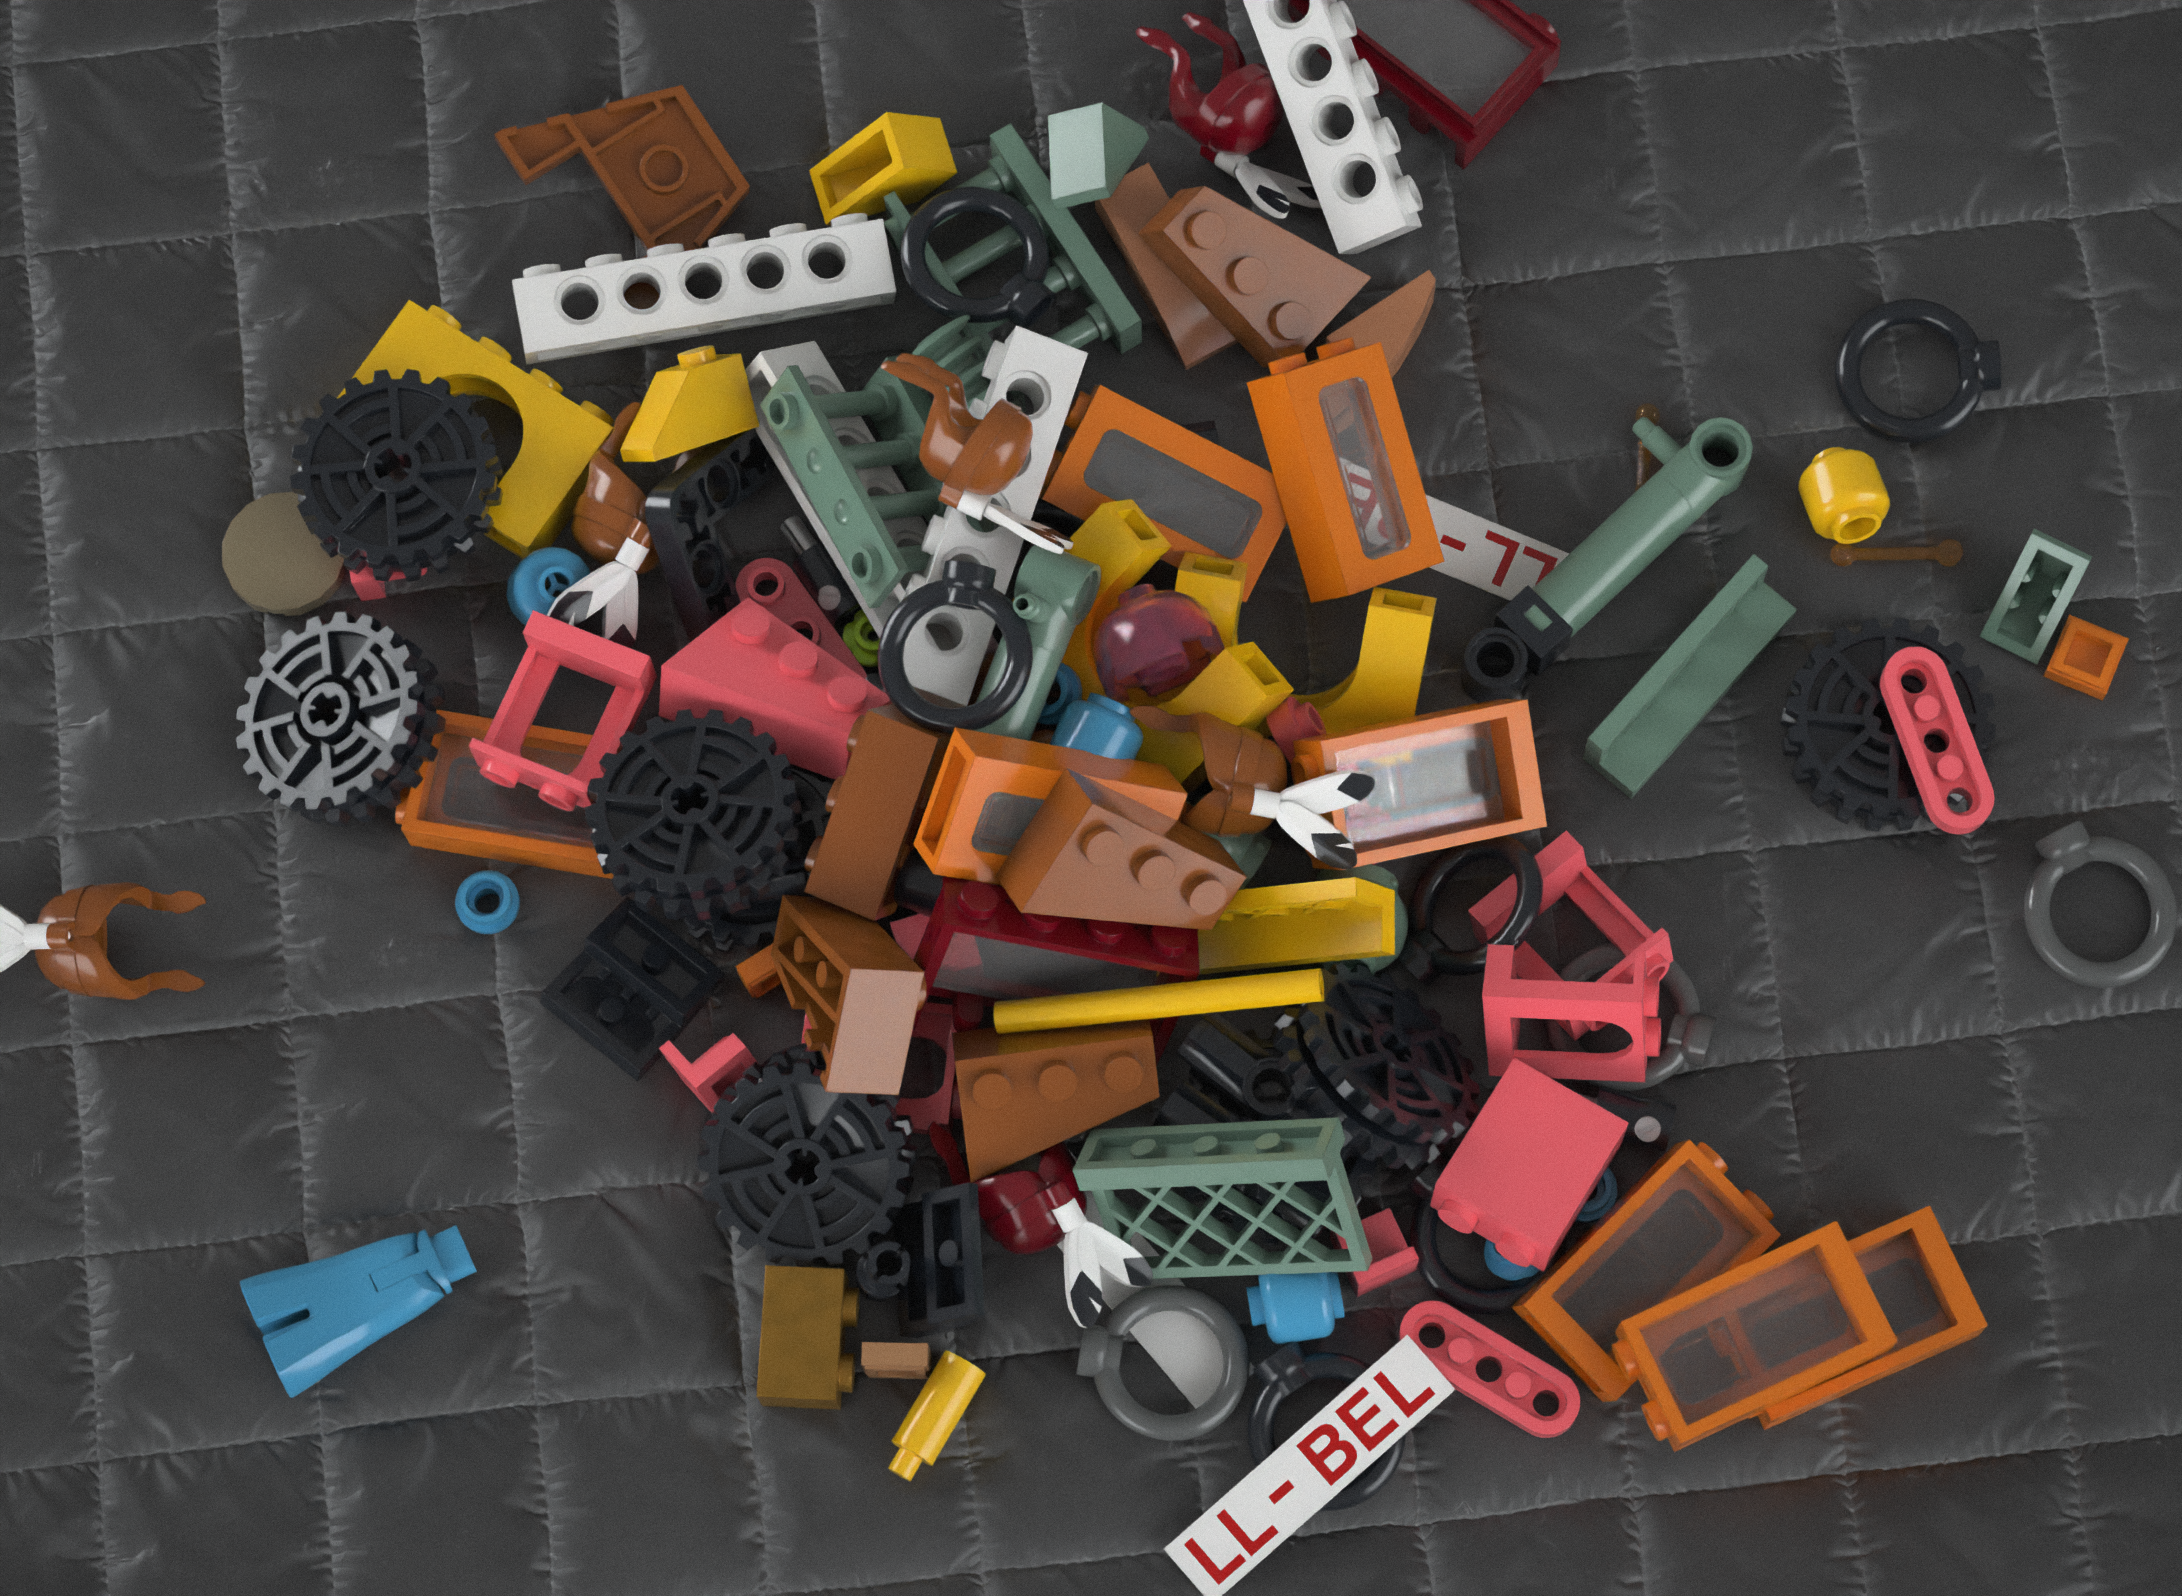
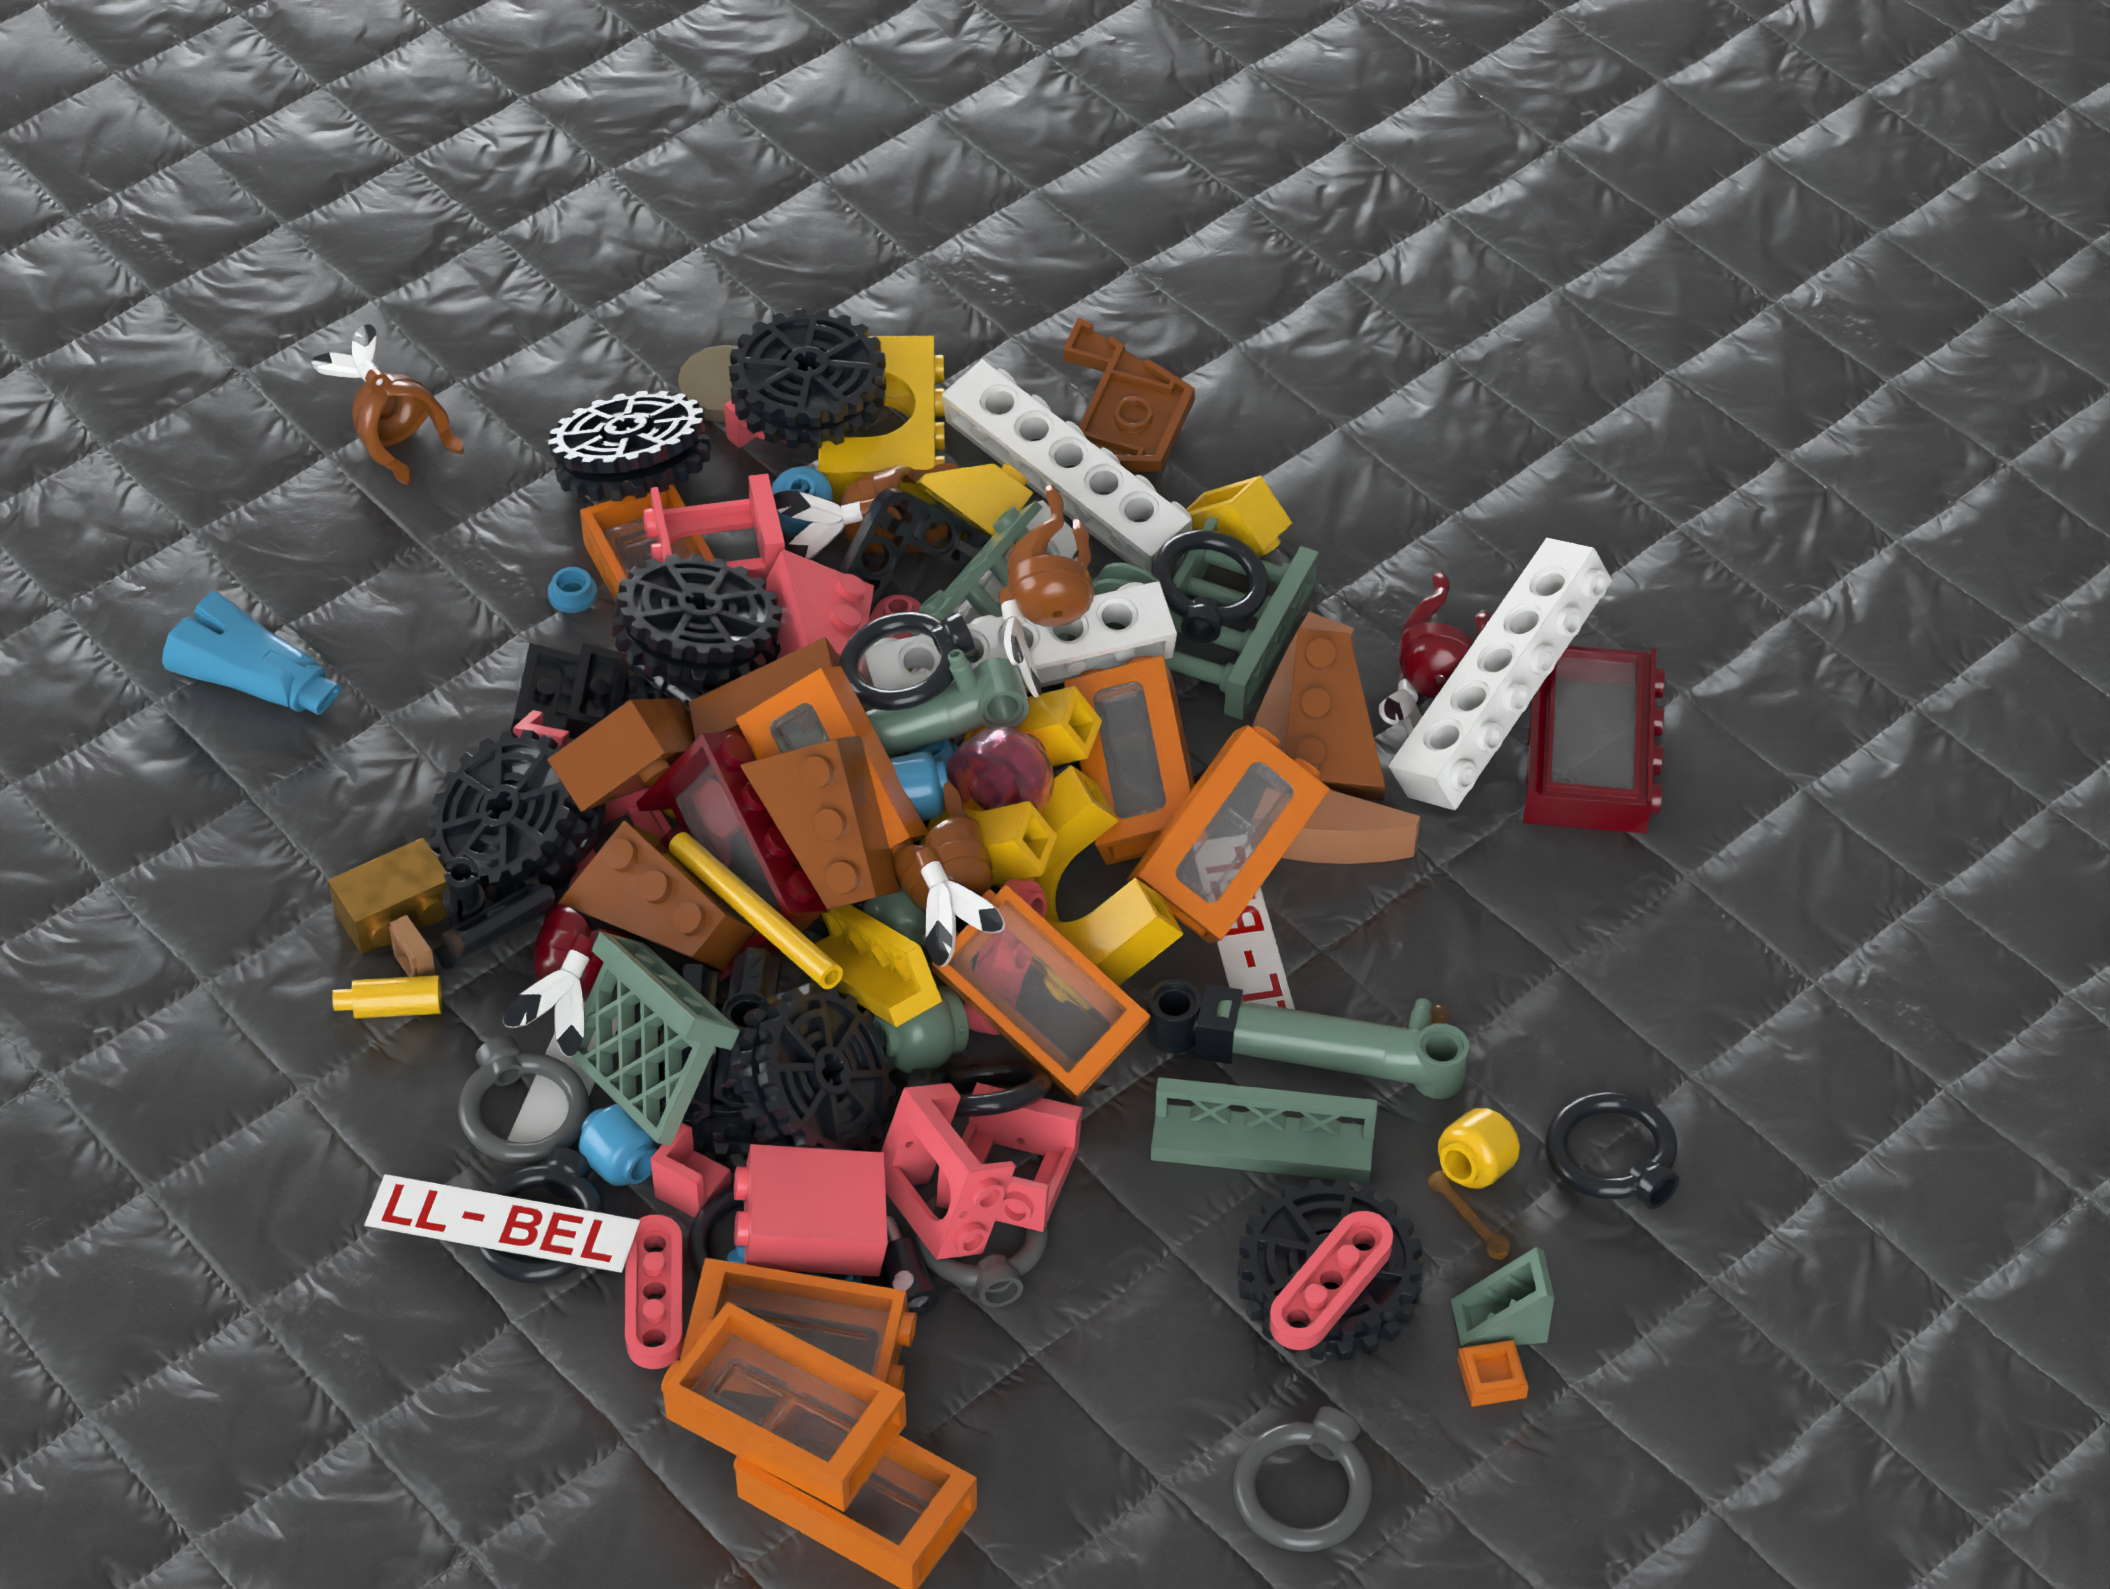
camera: 50 degrees right, 25 degrees down
(1091, 153) = (1340, 594): slope -> none

